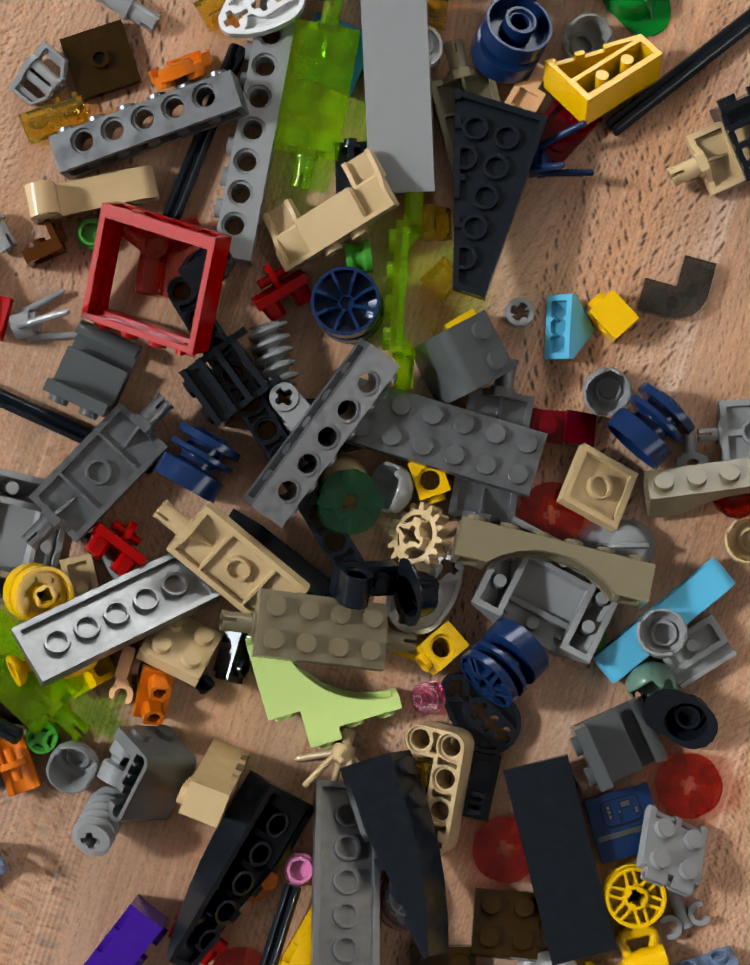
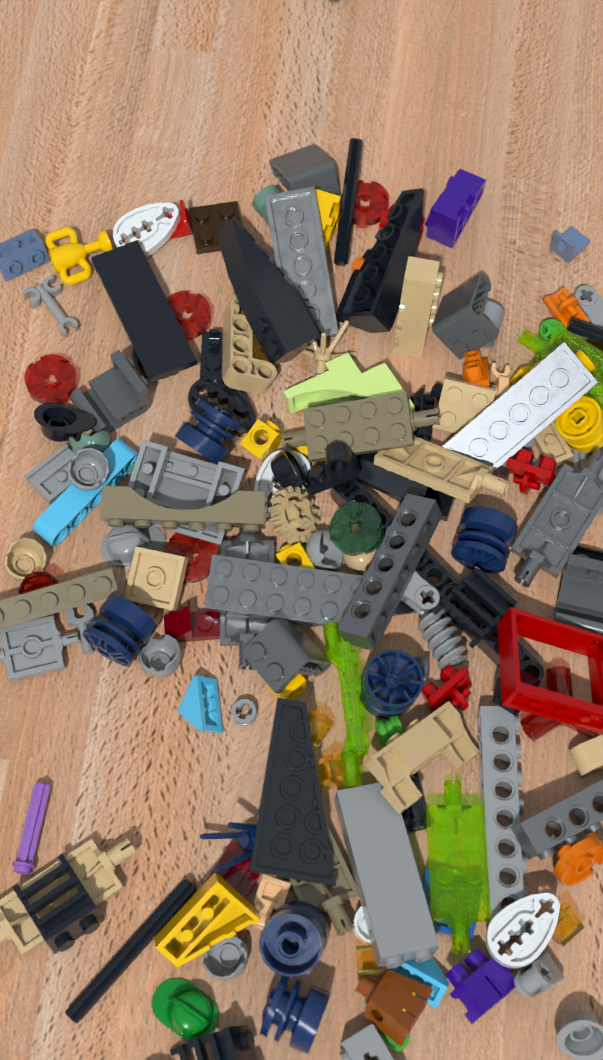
camera: 170 degrees right, 20 degrees down
(72, 767) = (523, 315): light grey hair -> none
(94, 828) = (497, 270): light grey piece -> none
(199, 146) = (546, 799): black axle -> none
(298, 868) = (339, 279): bright pink plate -> none
(303, 327) = (424, 662): none -> dark grey hinge
(428, 697) = (264, 406): clear pink tile -> none
(505, 925) = (177, 263): dark brown plate -> none
(611, 314) = (165, 720): yellow brick -> none
(617, 890) = (83, 297): yellow wheel -> none
(618, 820) = (93, 347): dark blue tile -> none
(671, 852) = (58, 325): light grey plate -> none
(680, 300) = (105, 748): clear smoke plate -> none

